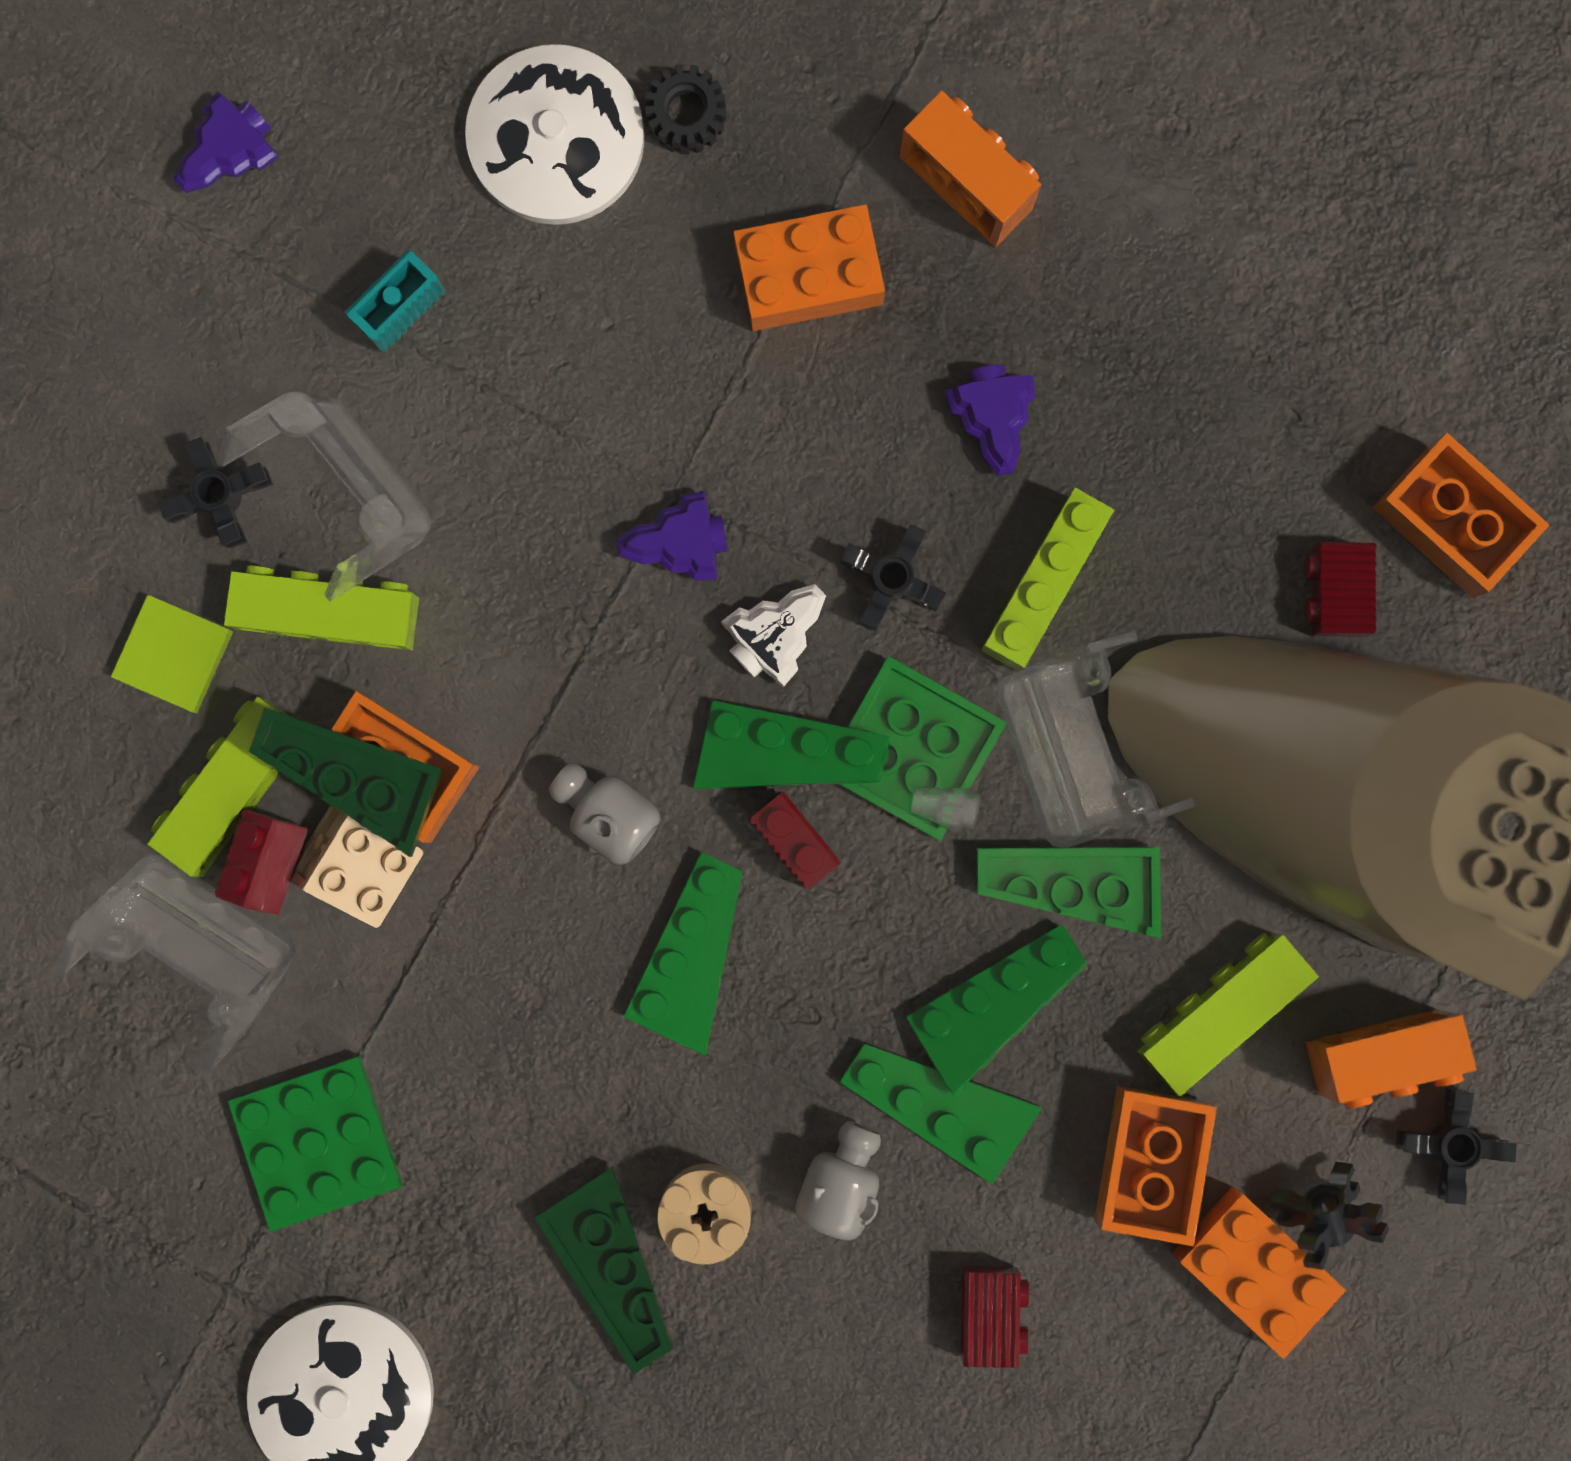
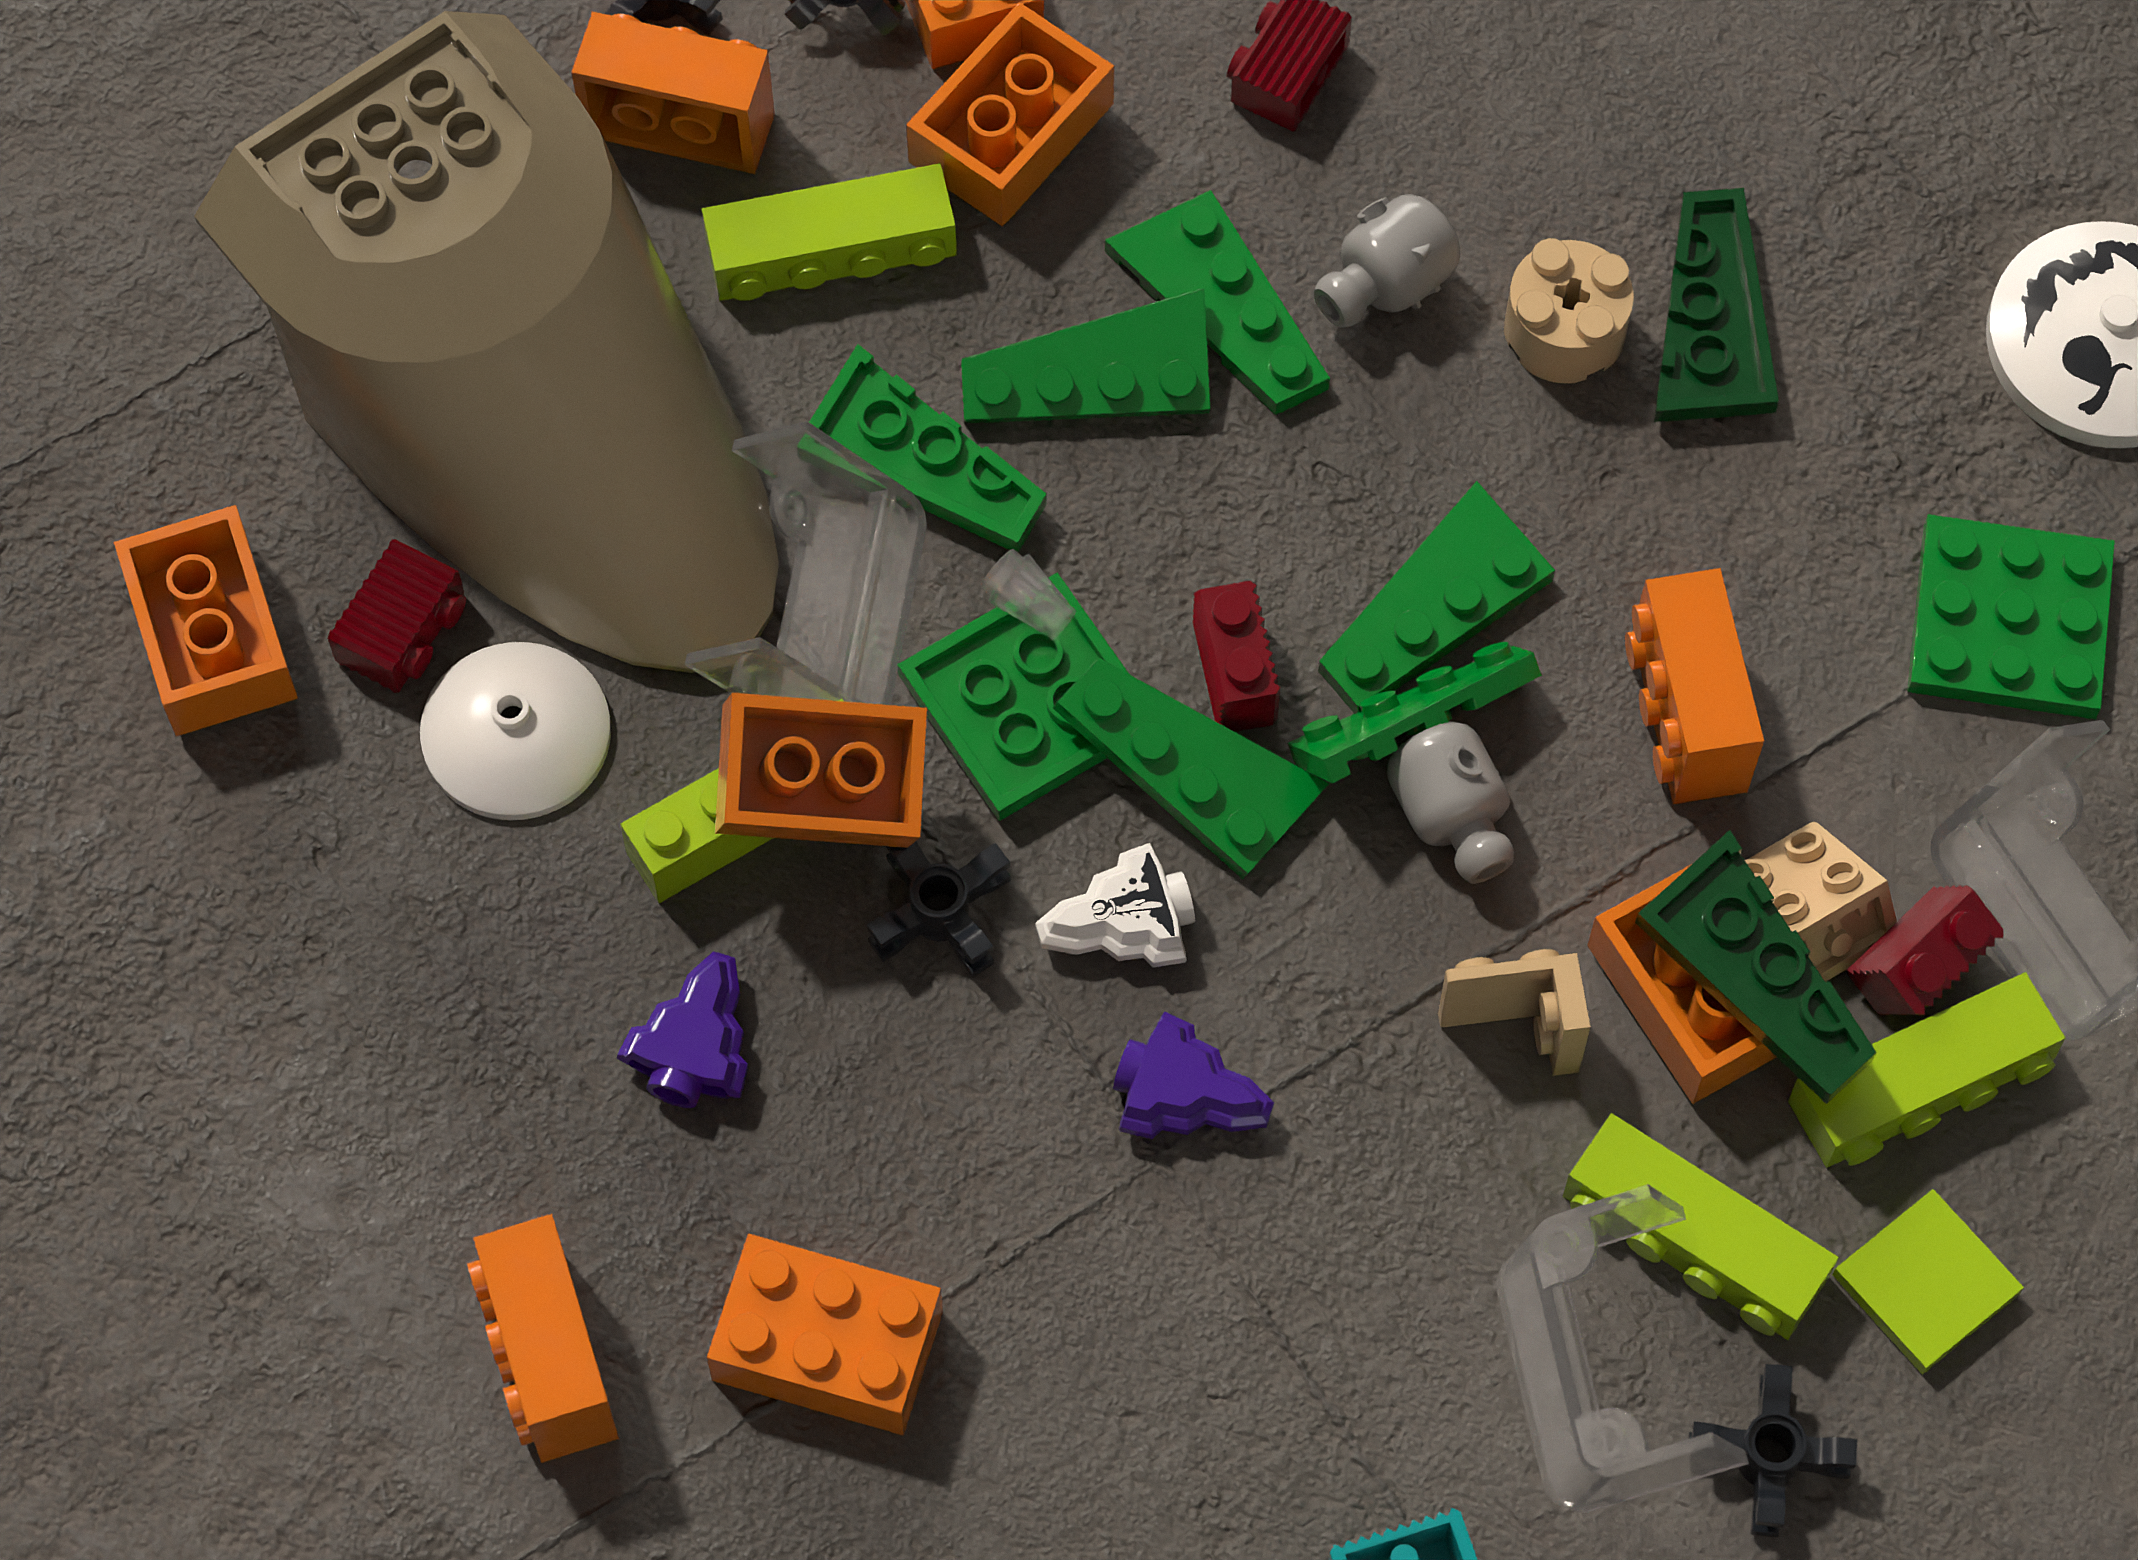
camera: 155 degrees left, 20 degrees down
(487, 966) = (1694, 687): none -> orange brick
(492, 708) = (1536, 986): none -> tan bracket
(673, 846) = (1371, 732): none -> green wing
(1003, 592) = (821, 770): none -> orange brick
(1198, 577) = (524, 762): none -> white dish

